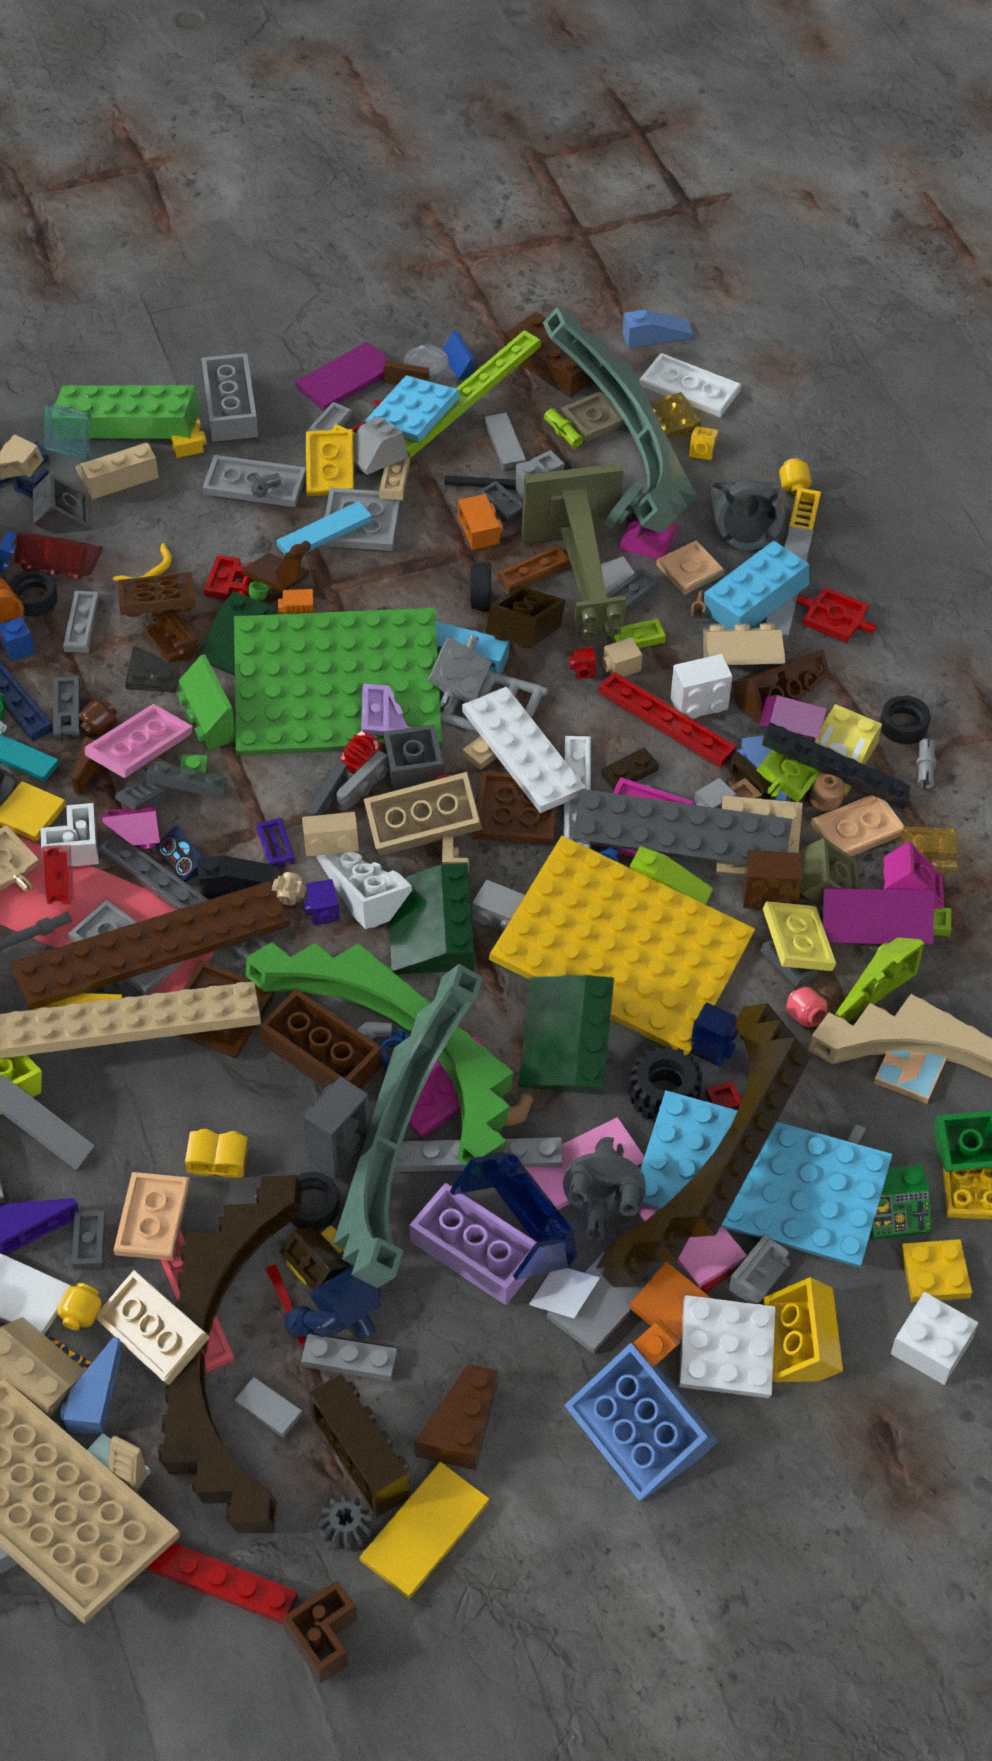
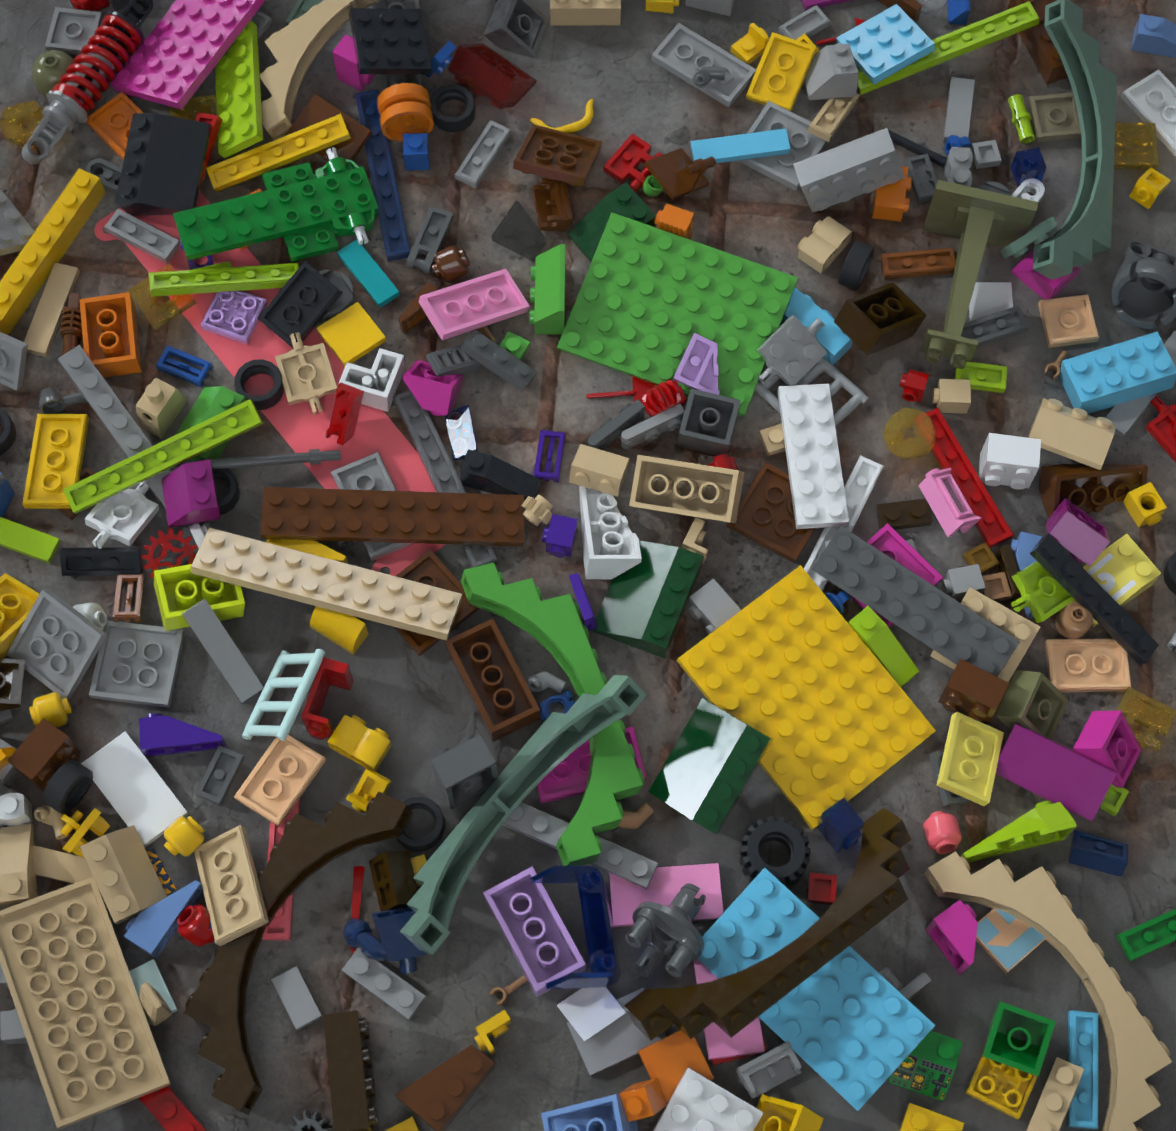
camera: 25 degrees right, 15 degrees up
(134, 1380) = (195, 925): none -> red head
(137, 1137) = (290, 707): none -> light aqua bar
(144, 1061) = (339, 628): none -> yellow brick
(163, 1104) = (329, 673): none -> red panel
(246, 1186) = (367, 788): none -> yellow bracket
(291, 450) = (751, 45): none -> yellow bracket
(330, 757) = (640, 388): none -> red piece
(373, 945) = (583, 601): none -> dark purple tile
(435, 510) = (849, 170): none -> light grey brick
(441, 582) = (824, 244): none -> tan brick
(474, 1311) = (508, 989): none -> medium nougat hand
(479, 1347) = (494, 1026): none -> yellow bracket
(511, 465) = (955, 141): none -> blue plate
(590, 455) = (1028, 165): none -> clear blue brick
(594, 688) = (909, 448): none -> clear yellow plate
(664, 741) = (947, 502): none -> bright pink window
(715, 772) = (983, 556): none -> pearl gold tile
(836, 681) = (1145, 495): none -> yellow brick
(867, 1083) = (955, 935): none -> dark pink slope
(952, 972) = (1098, 853): none -> dark blue slope

